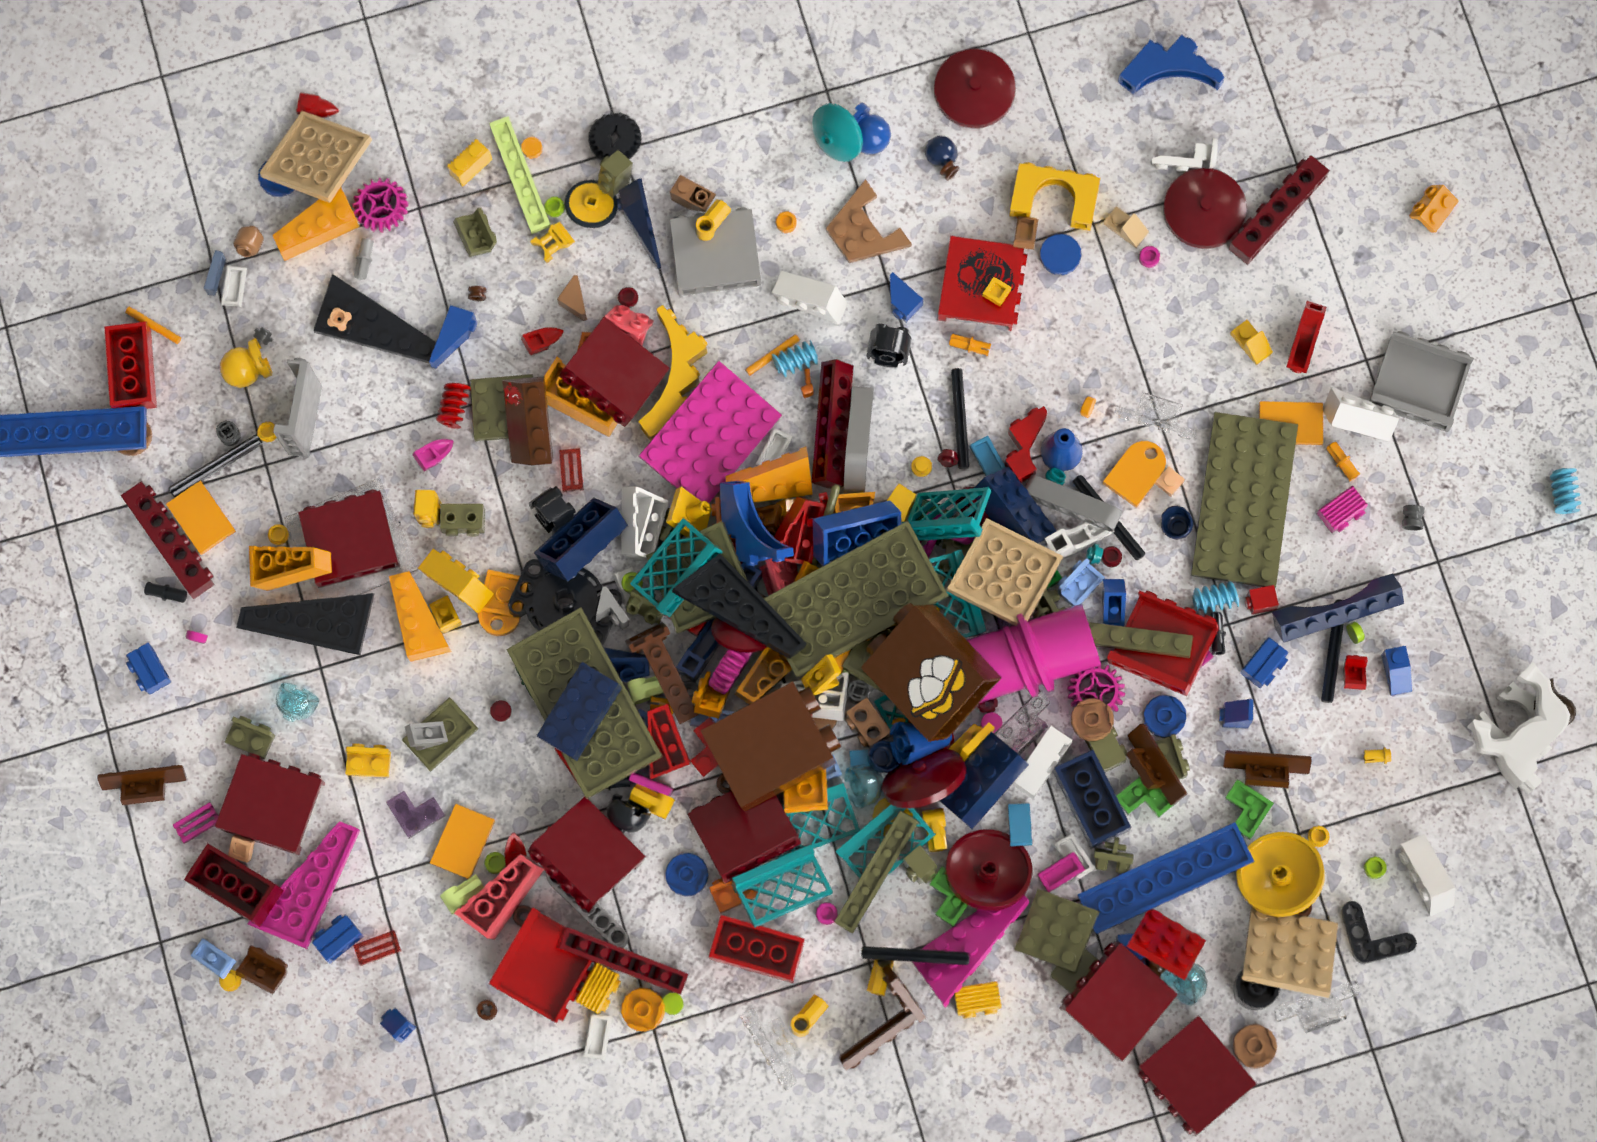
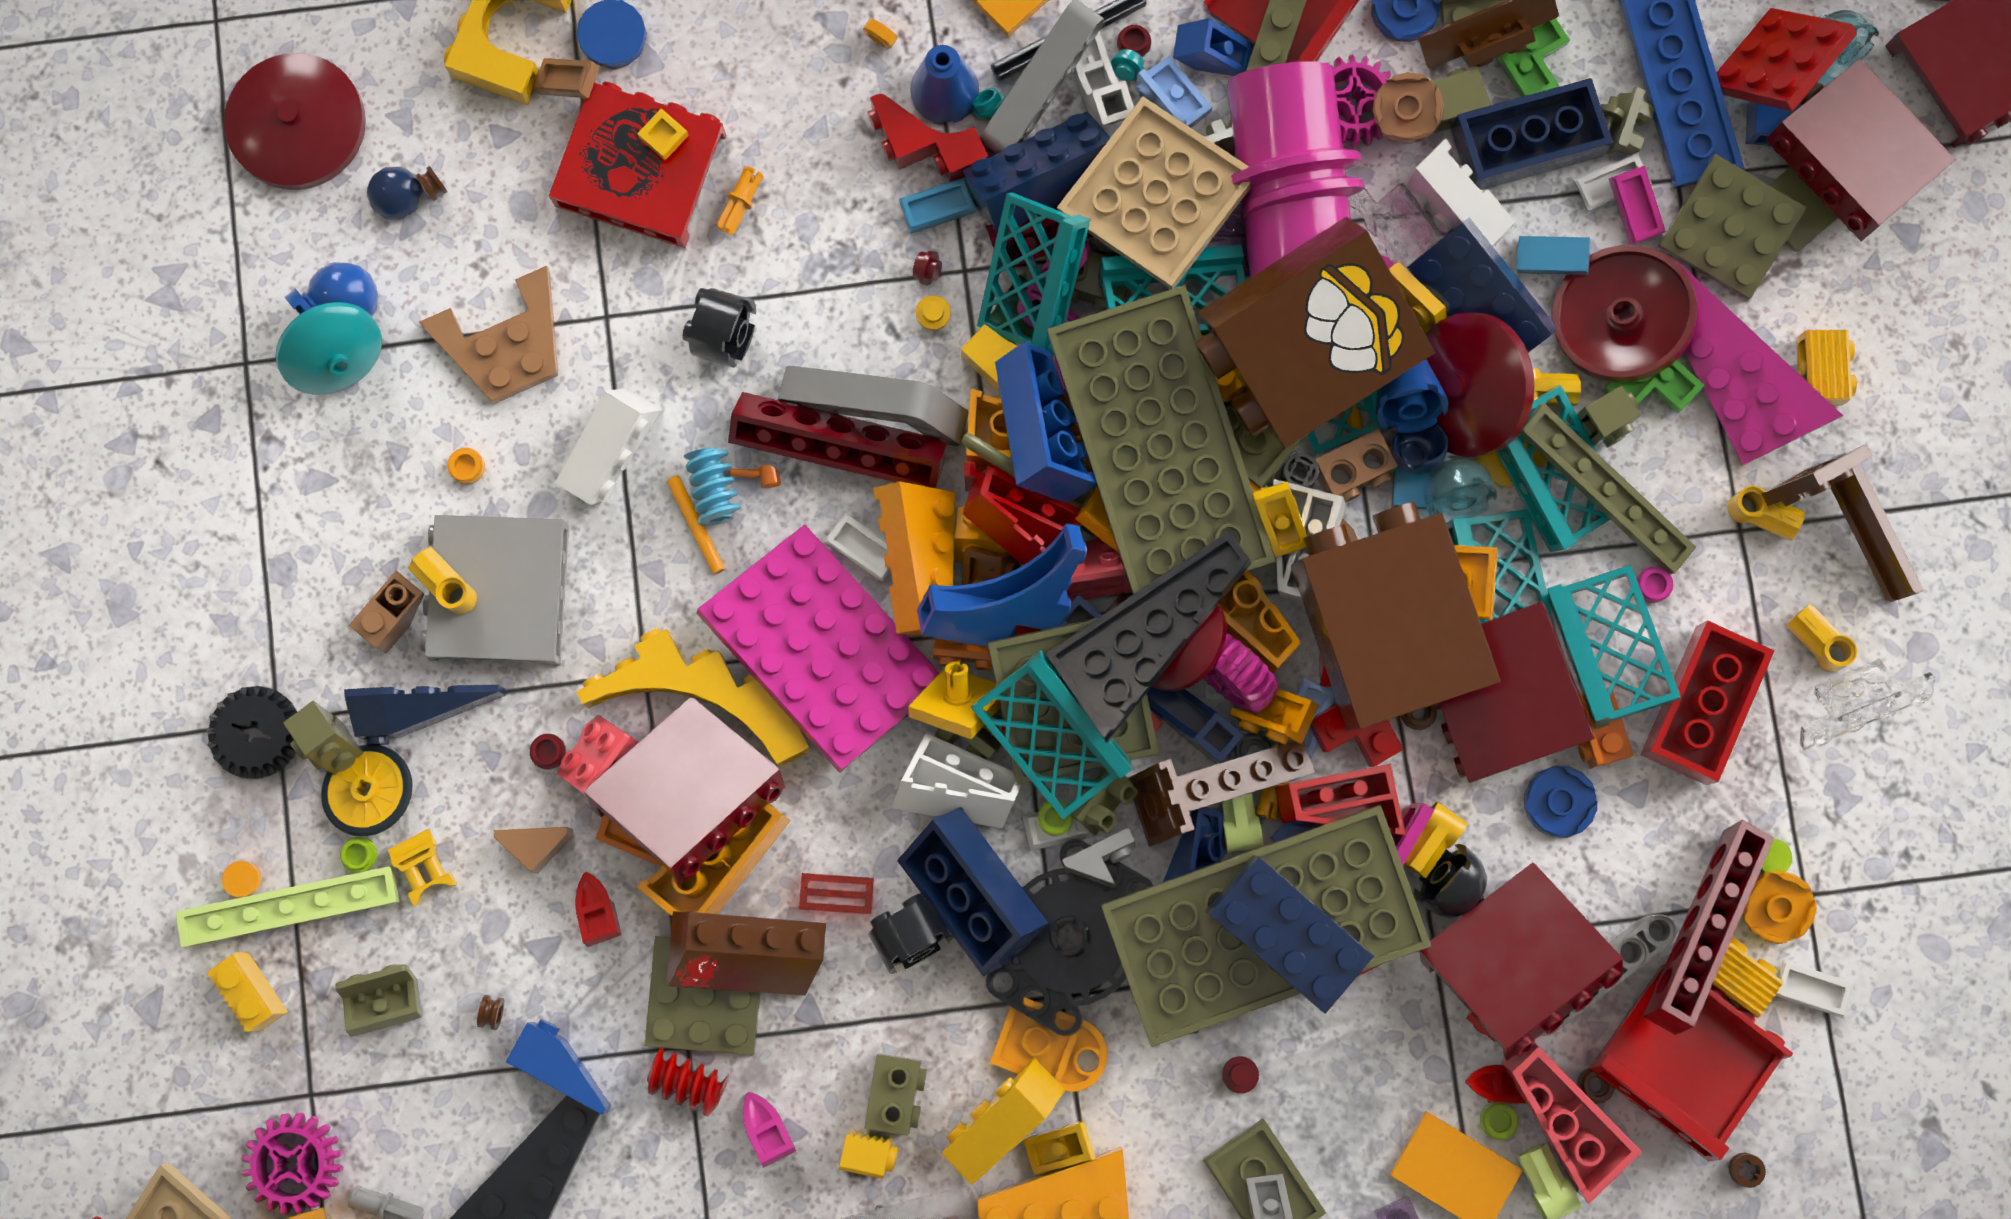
camera: 85 degrees left, 5 degrees up
(904, 300) = (639, 295): blue slope -> none
(915, 955) = (1756, 447): black axle -> none
(960, 418) = (860, 238): black axle -> none

